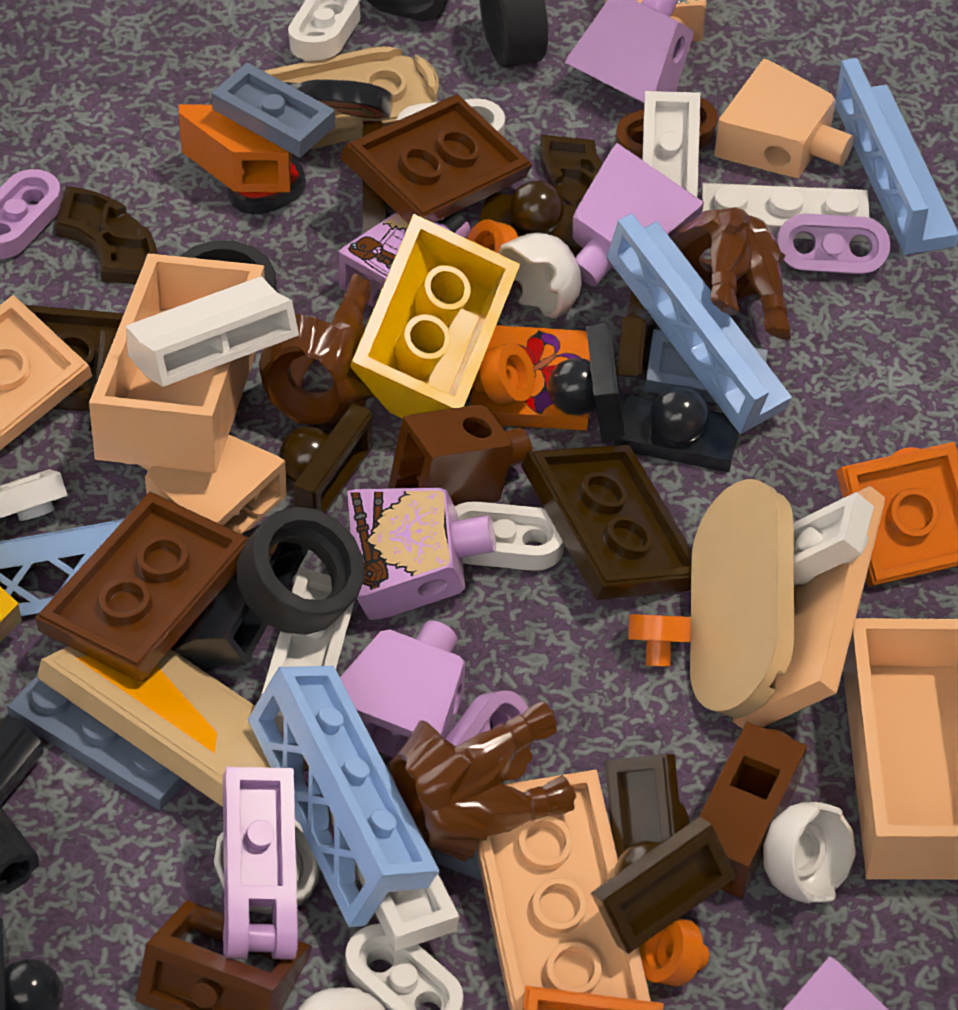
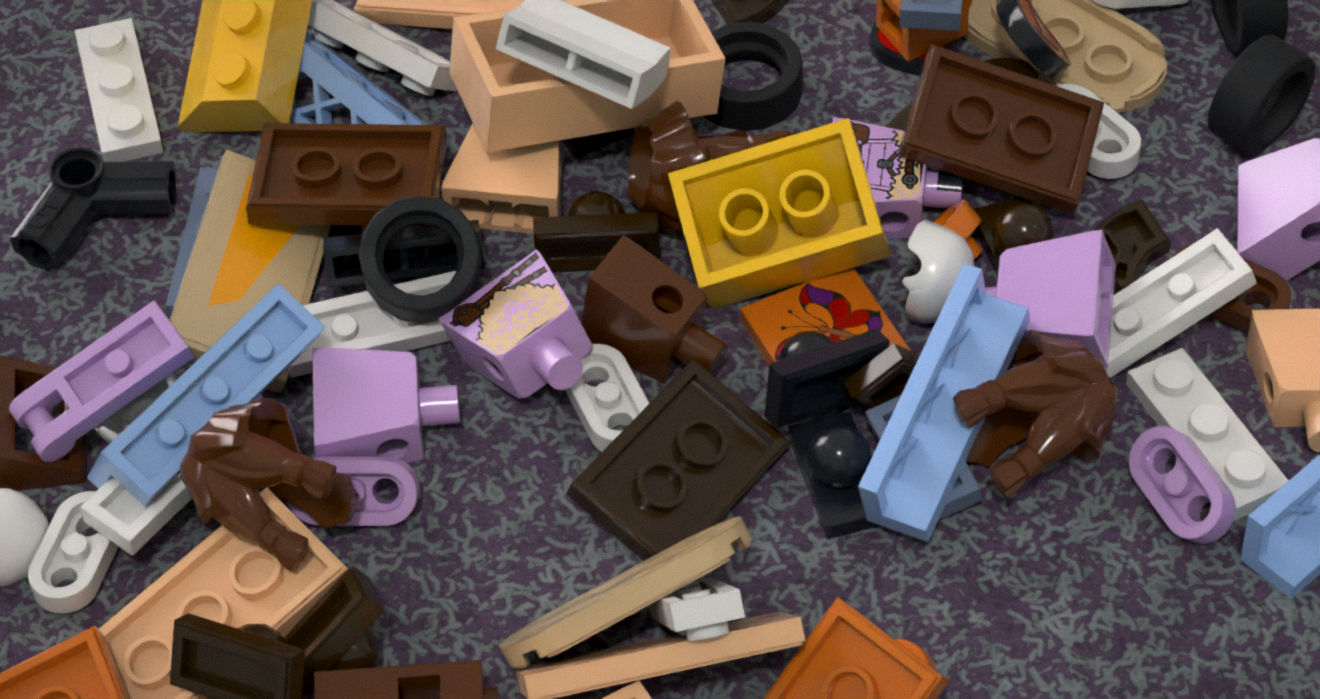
camera: 65 degrees right, 0 degrees up
(506, 374) = (786, 314): orange tile -> none
(659, 633) = (569, 561): orange tile -> none

